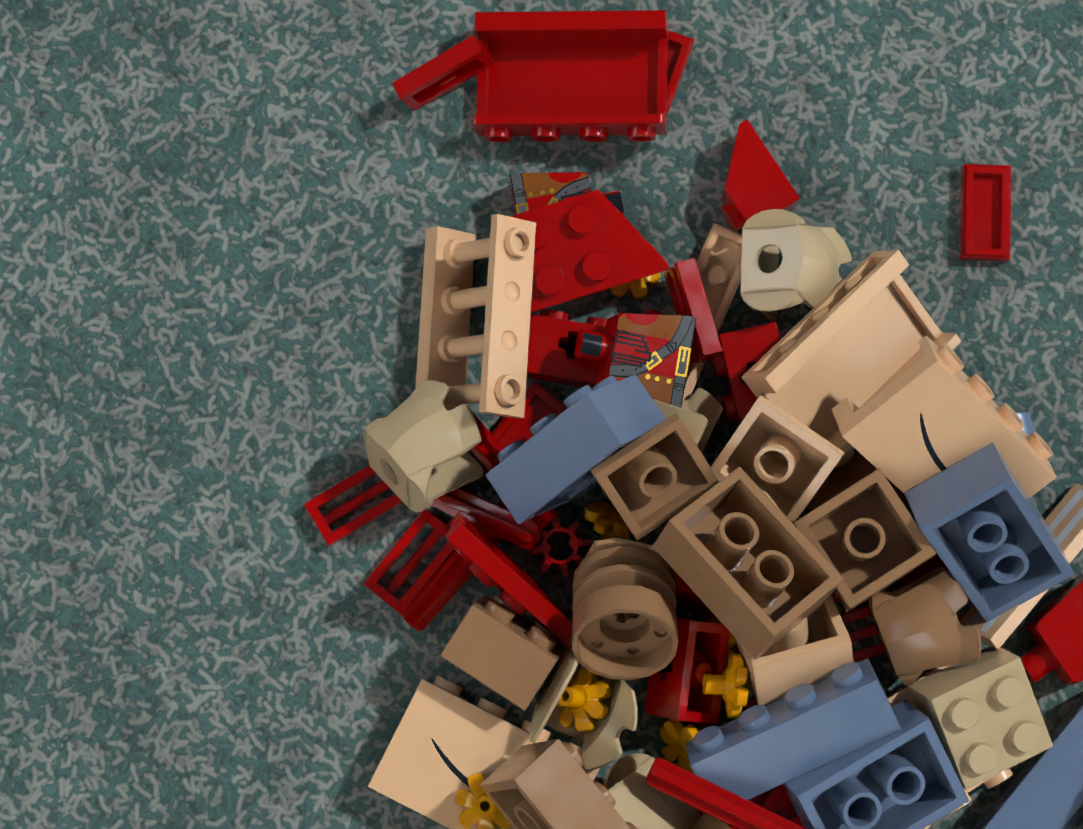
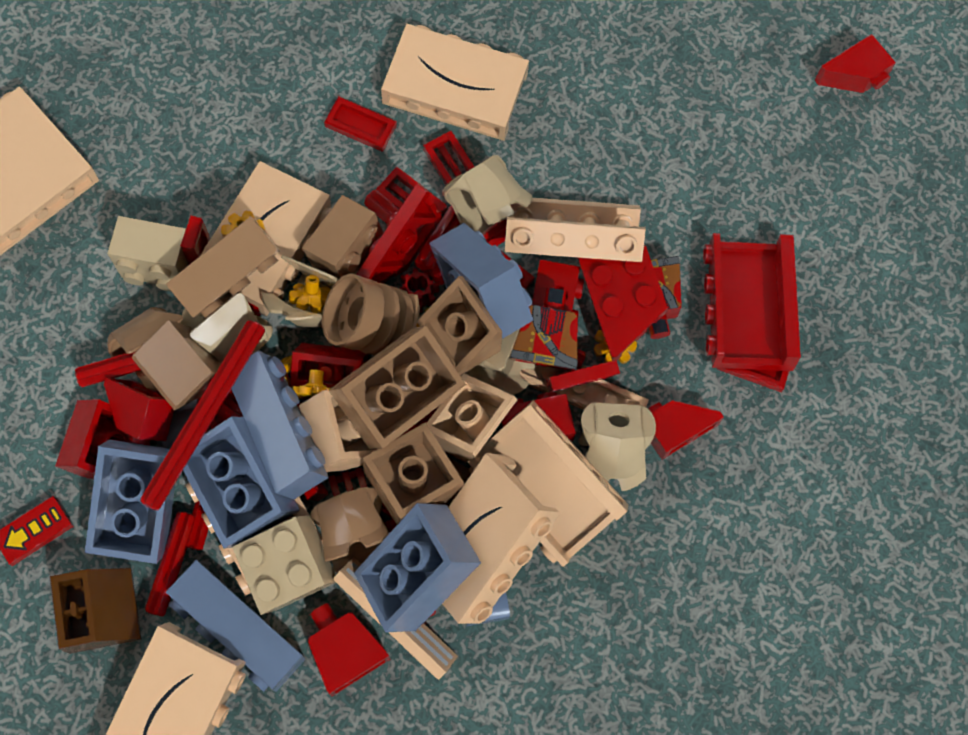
camera: 85 degrees right, 10 degrees down
(223, 497) = (454, 81): none -> light nougat panel
(290, 641) = (360, 124): none -> red tile
(443, 73) = (749, 216): red tile -> none
(985, 212) = (661, 596): red tile -> none

